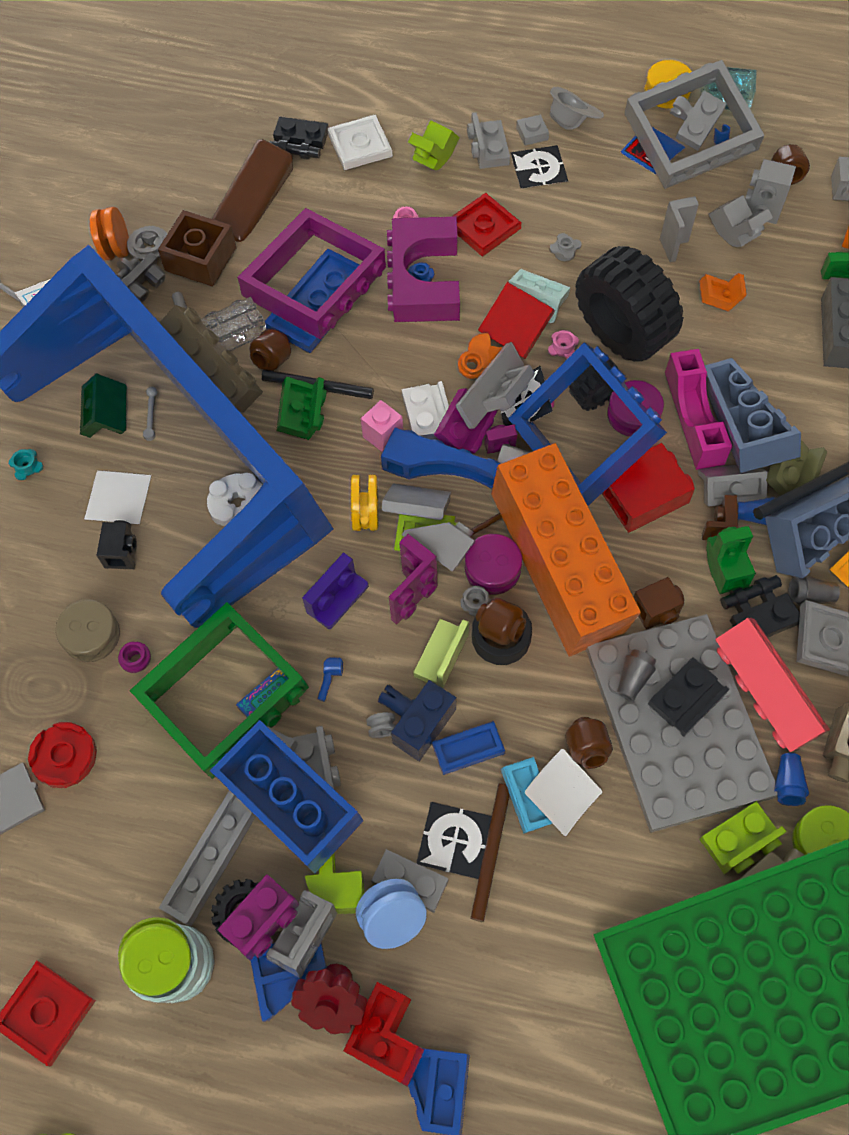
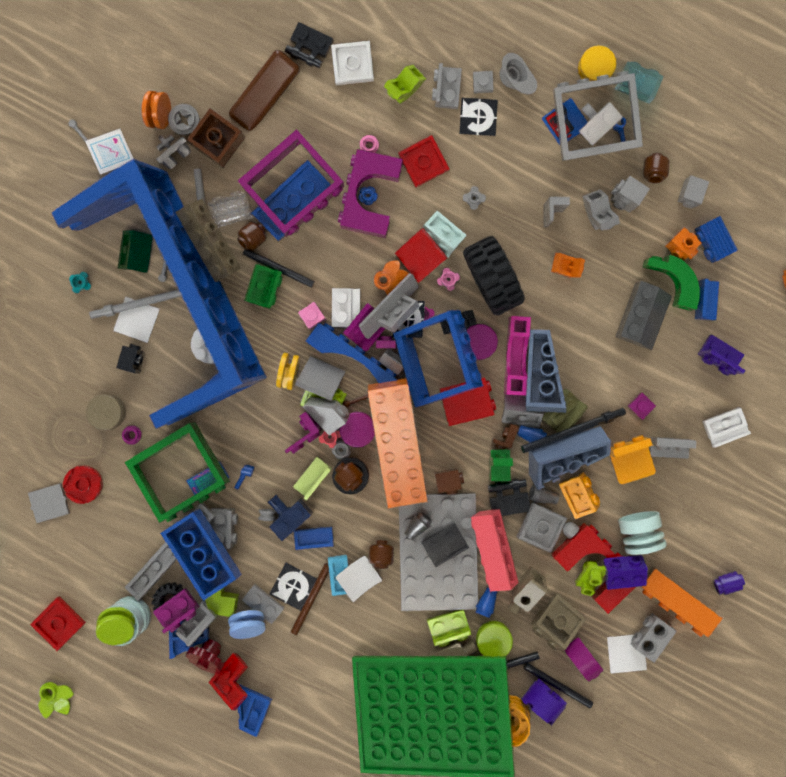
camera: 10 degrees right, 25 degrees up
(76, 490) = (110, 310): none -> light grey bar
(334, 592) = (258, 426): dark purple bracket -> none
(452, 578) = (331, 442): none -> coral plate

